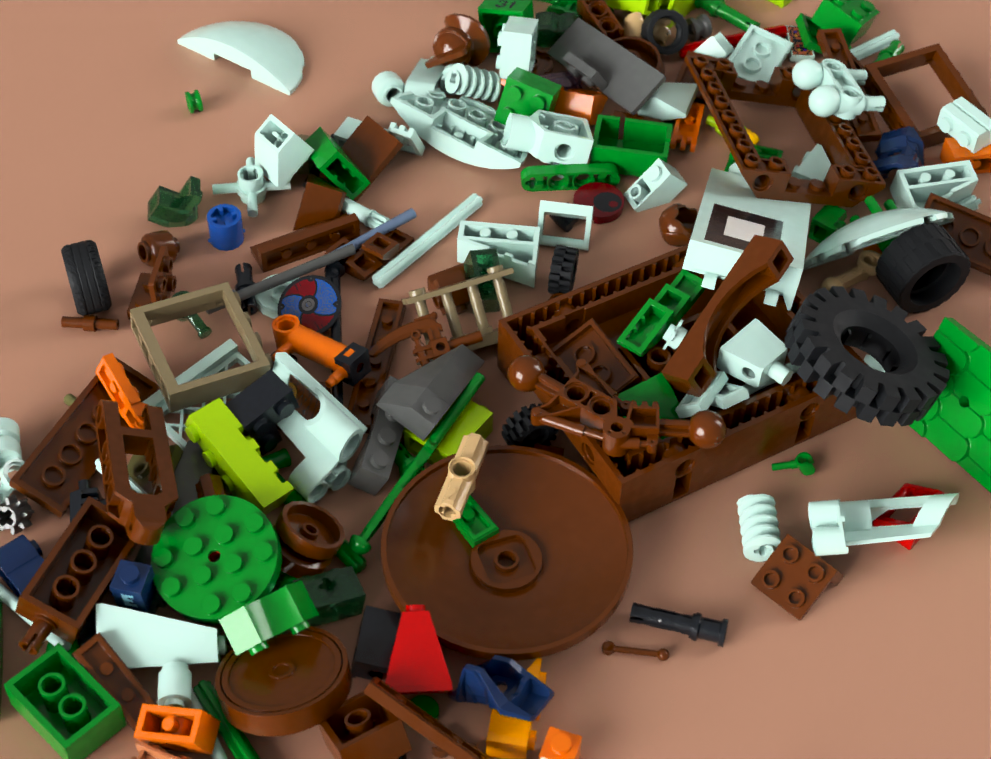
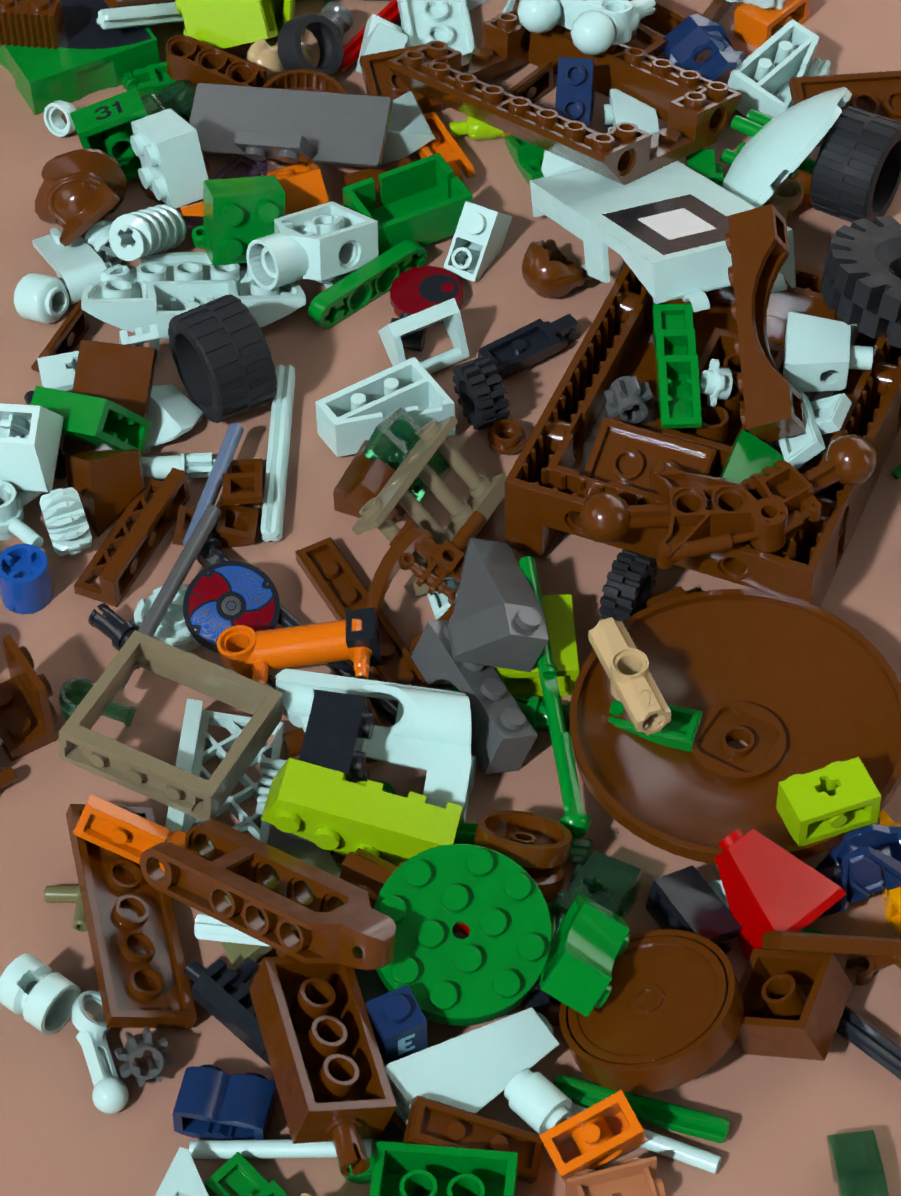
camera: 35 degrees left, 0 degrees up
(274, 209) = (66, 521): none -> light aqua gear
(382, 115) = (67, 335): none -> reddish brown slope
(390, 185) = (170, 415): none -> light aqua slope
(434, 168) = (222, 358): none -> black tyre
(497, 627) = (828, 801): none -> lime brick
(615, 259) = (530, 344): none -> black hinge
(621, 316) = (629, 400): none -> dark grey gear
(772, 121) = (536, 83): none -> reddish brown slope
(790, 135) = (575, 89): none -> dark blue pin

